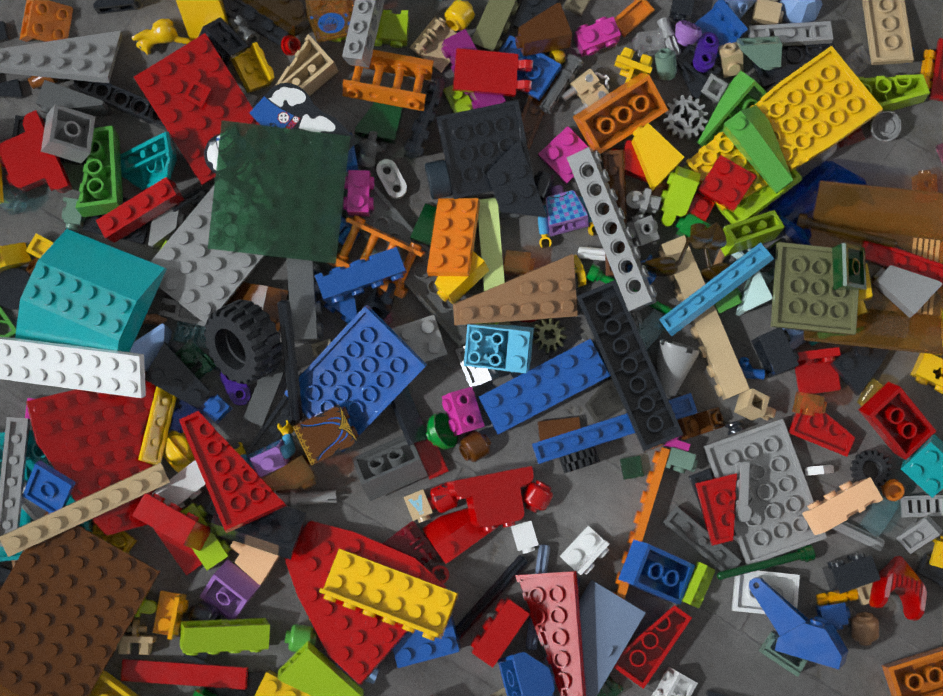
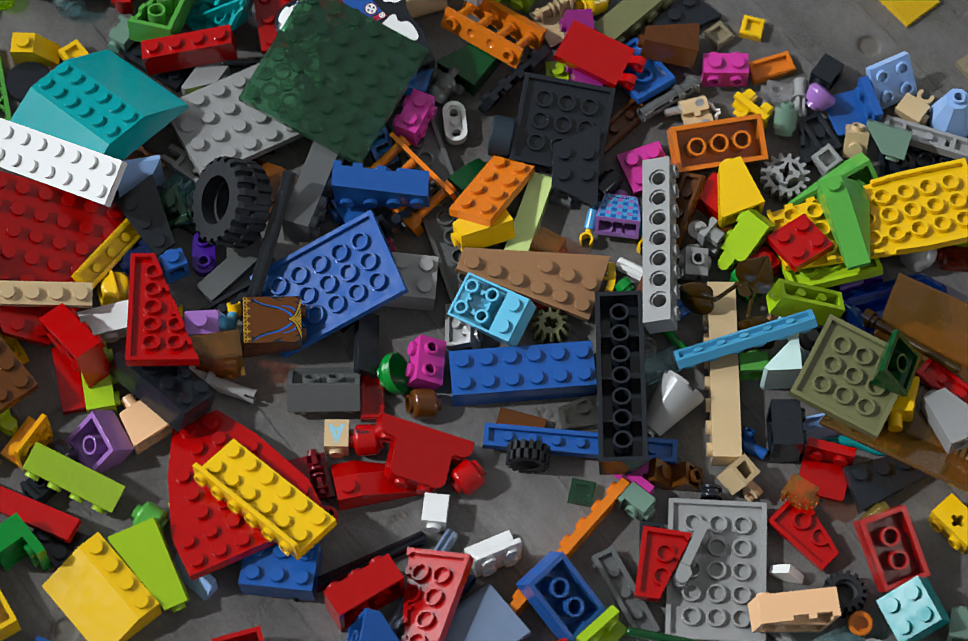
camera: 25 degrees right, 20 degrees down
(558, 56) = (677, 72): yellow hinge -> none
(705, 50) = (835, 120): dark purple plate -> none

